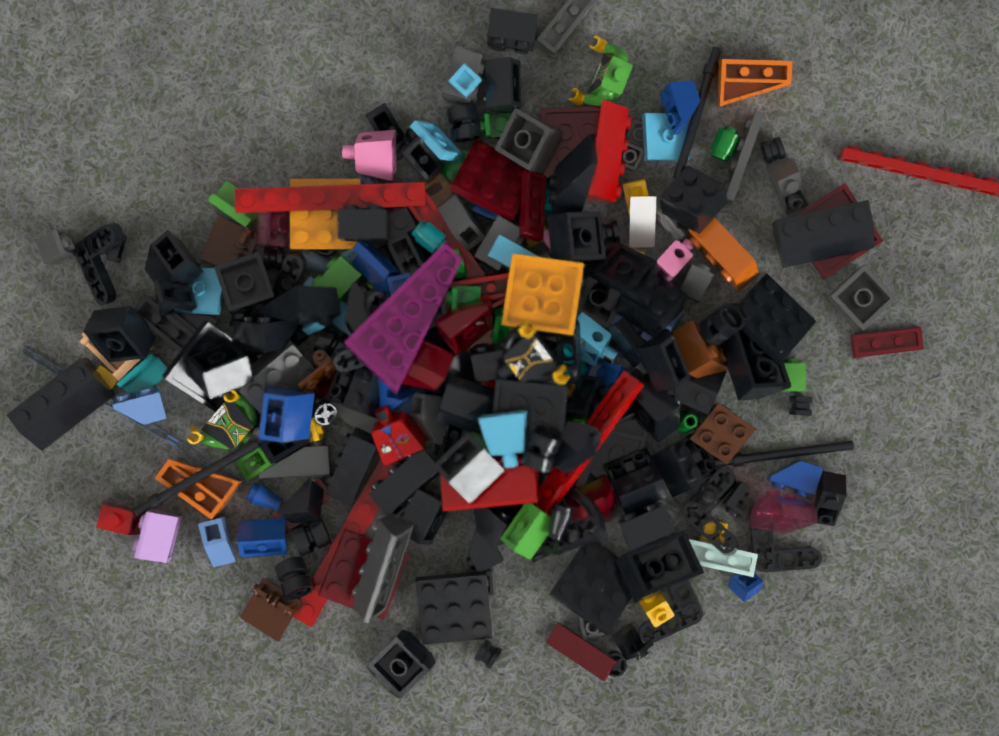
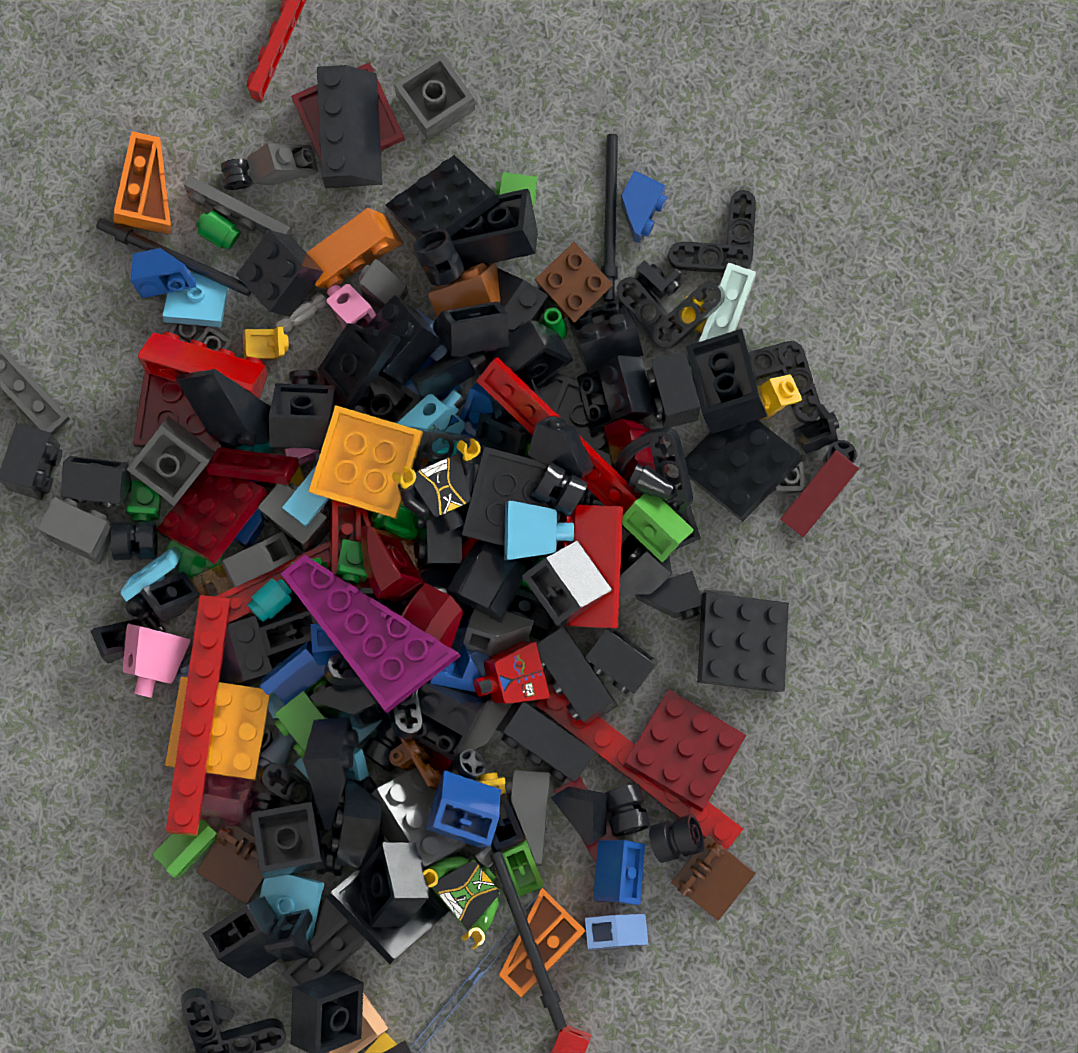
camera: 80 degrees left, 10 degrees down
(141, 406) = (425, 1001): medium blue slope -> none
(145, 374) = (389, 997): teal panel -> none
(157, 536) = (597, 1007): lavender slope -> none
(264, 497) = (566, 866): blue cone -> none
(363, 224) = (239, 674): black brick -> none
(381, 566) = (676, 716): dark grey slope -> none
(401, 663) = (806, 721): black slope -> none
(465, 80) = (82, 521): medium azure plate -> none
(487, 654) = (807, 610): black wheel -> none
(609, 78) = (110, 353): bright green torso -> none
(642, 221) = (296, 340): white sticker -> none
(745, 586) = (766, 286): blue slope -> none
(782, 513) = (682, 225): clear pink brick -> none
(800, 405) = (554, 187): black wheel -> none
(830, 497) = (673, 170): black slope -> none
(886, 342) = (493, 77): dark red tile -> none

